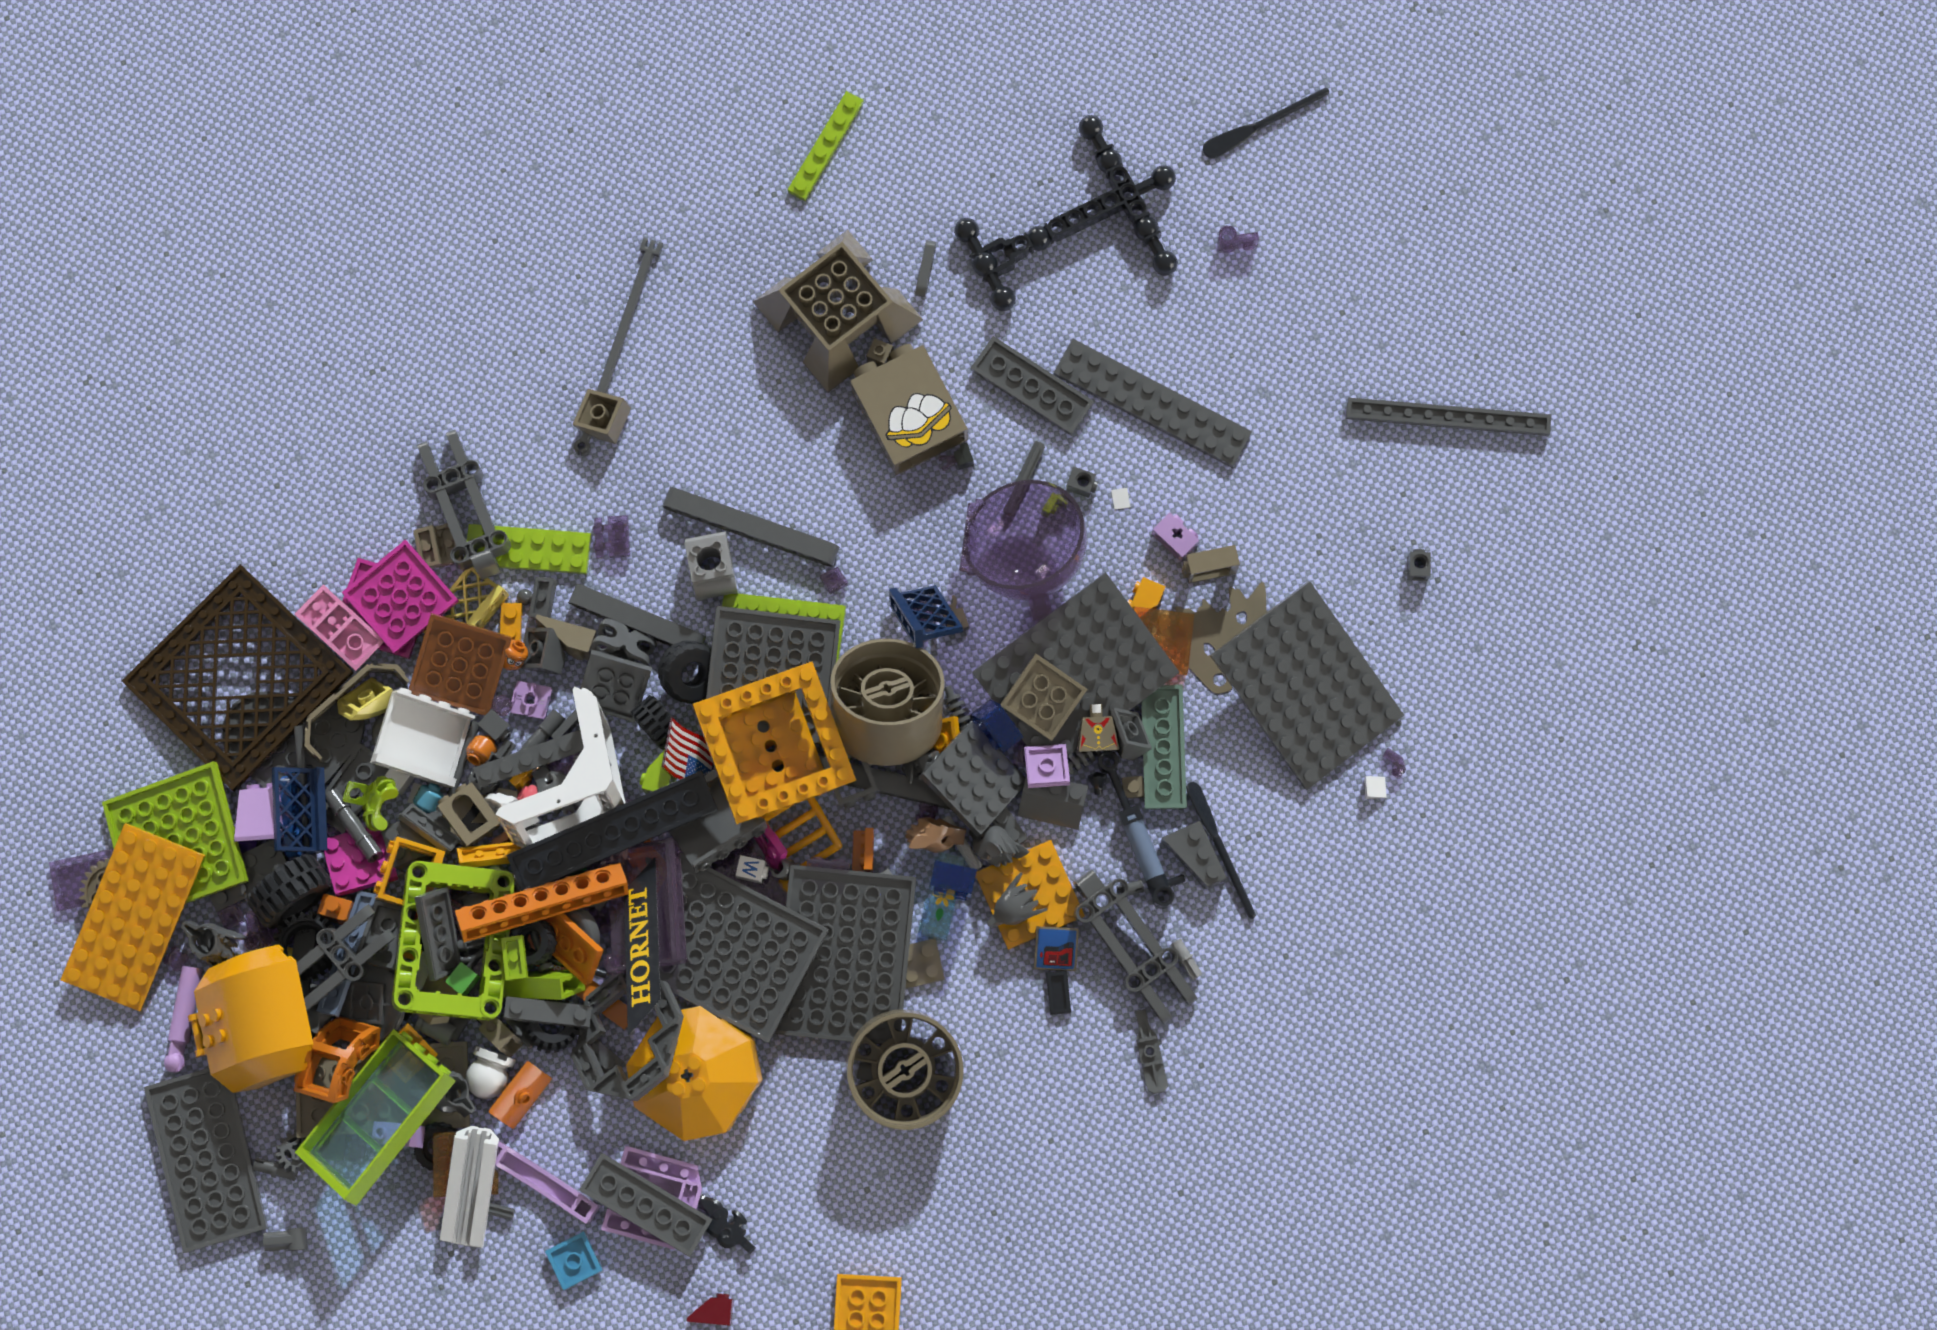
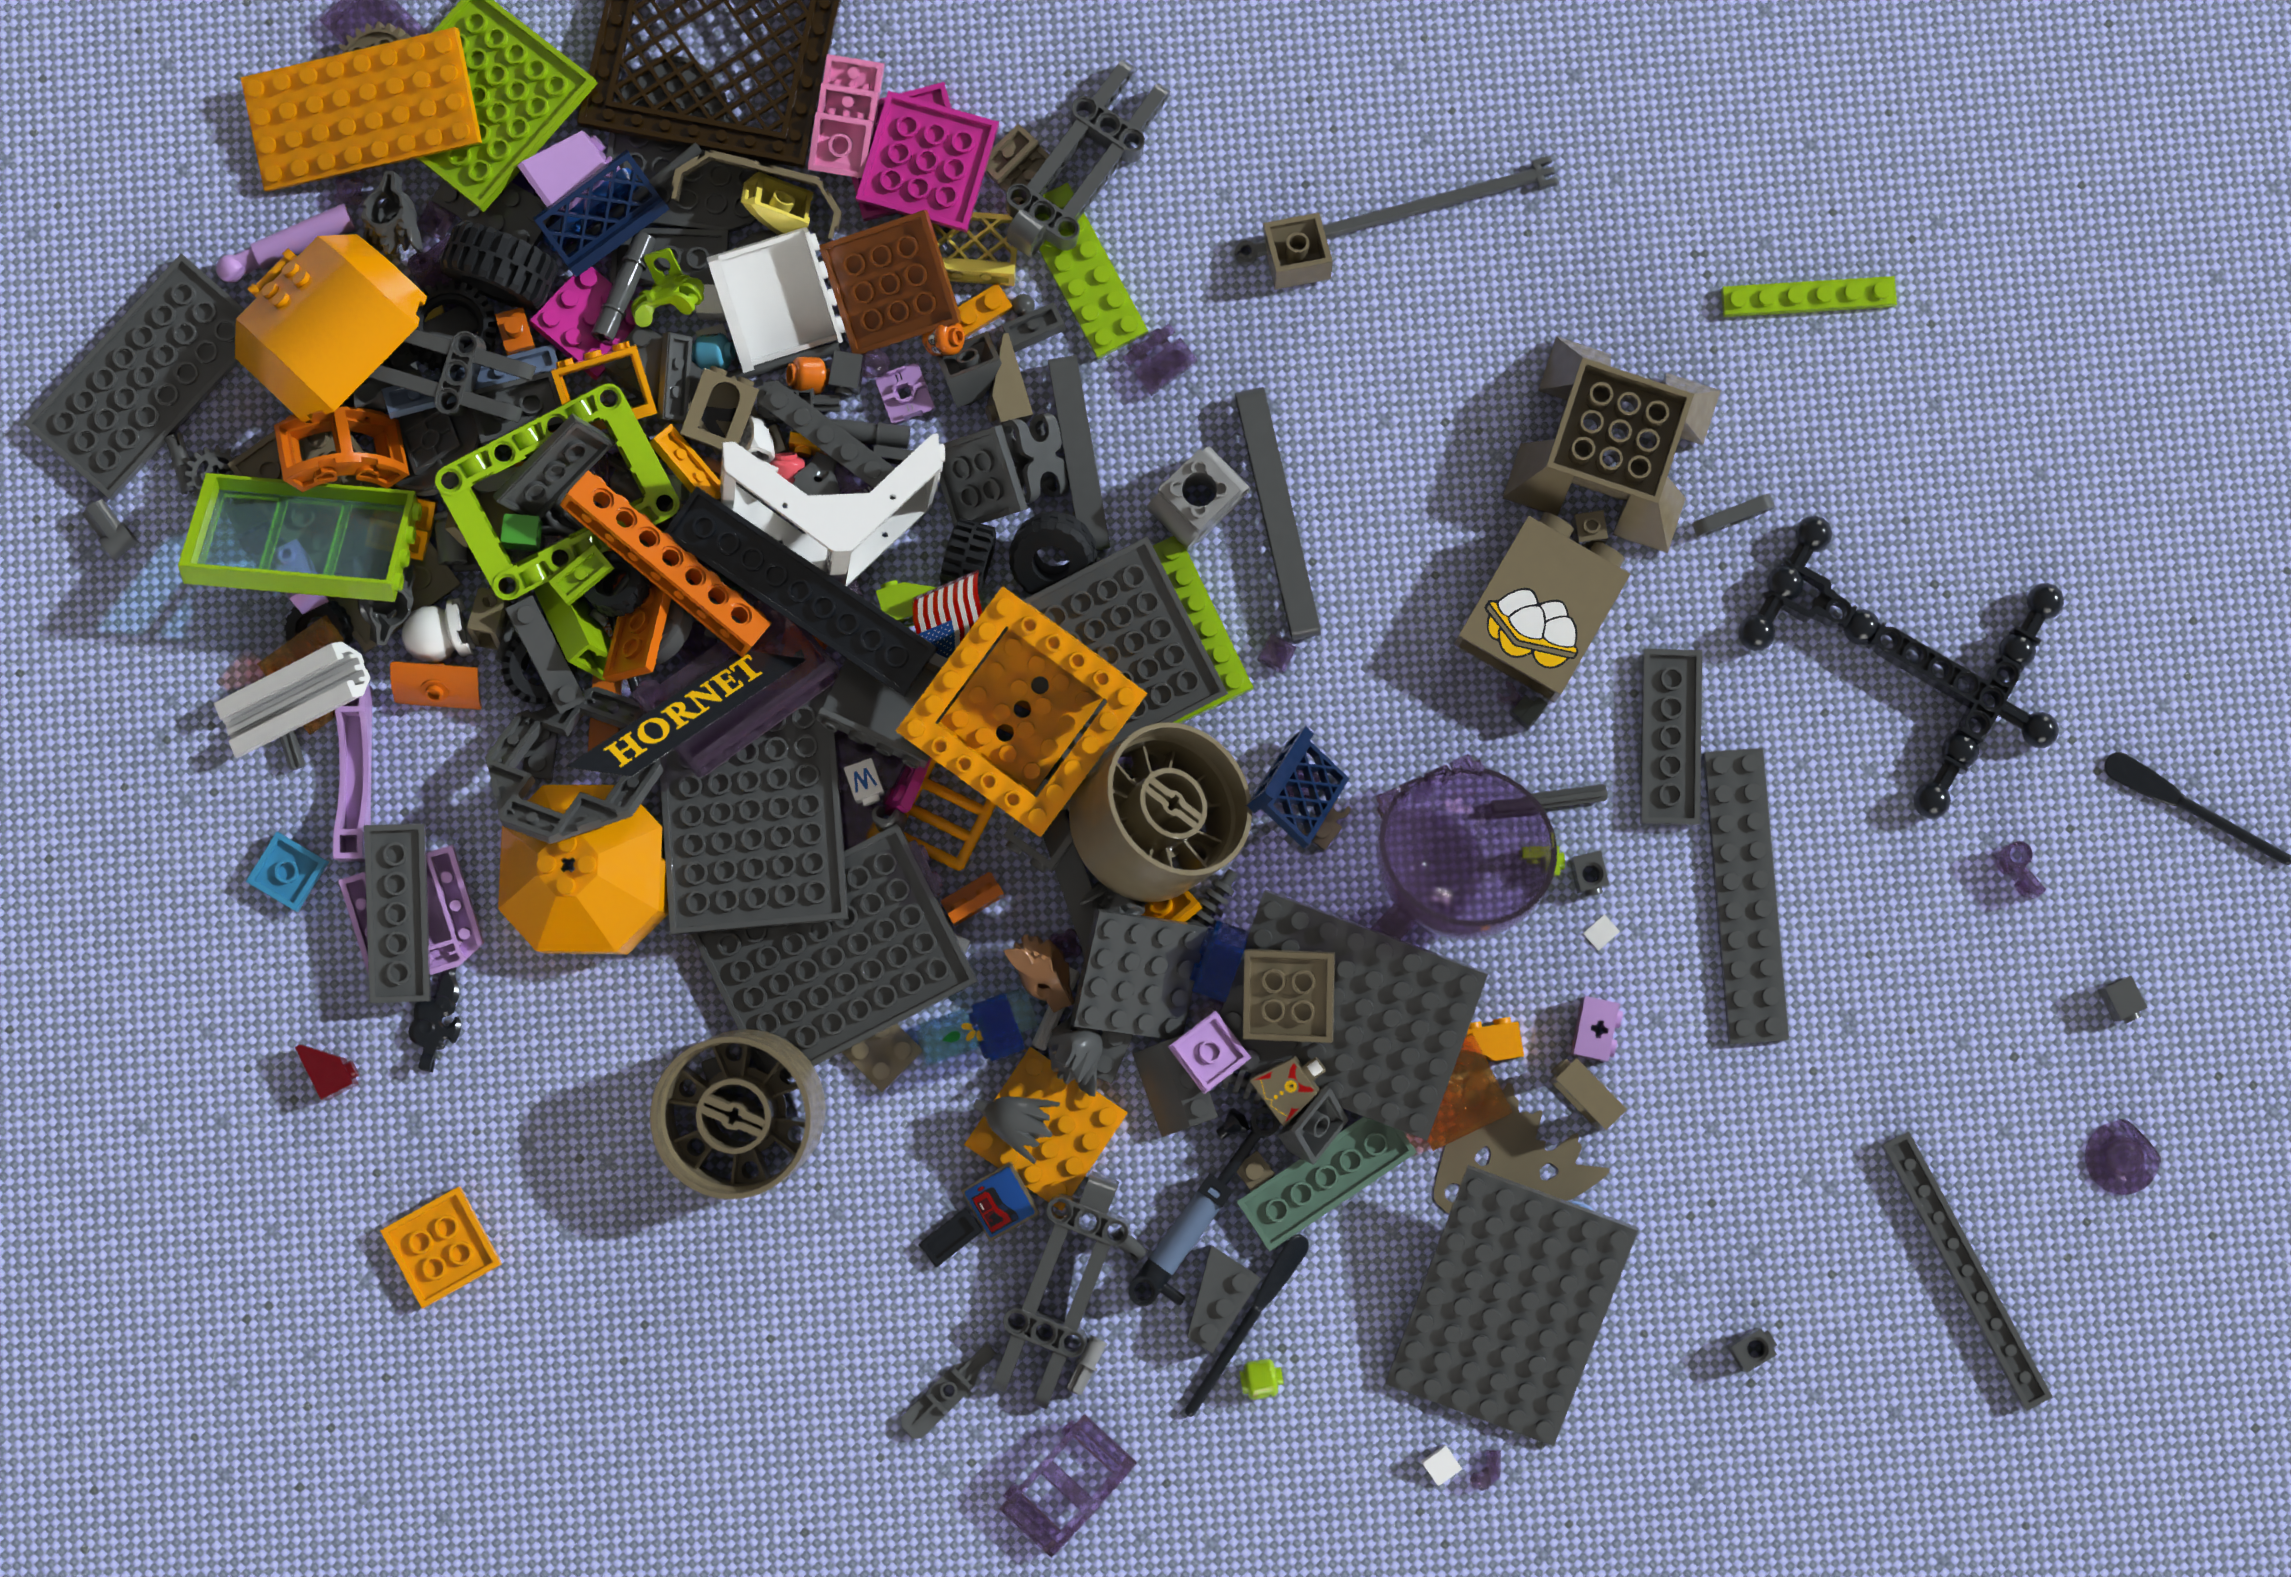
camera: 55 degrees right, 5 degrees up
(1242, 980) = (1036, 1523): none -> clear purple window
(1259, 860) = (1260, 1379): none -> lime head
(1348, 231) = (2123, 999): none -> dark grey brick
(1438, 290) = (2121, 1158): none -> clear purple hat

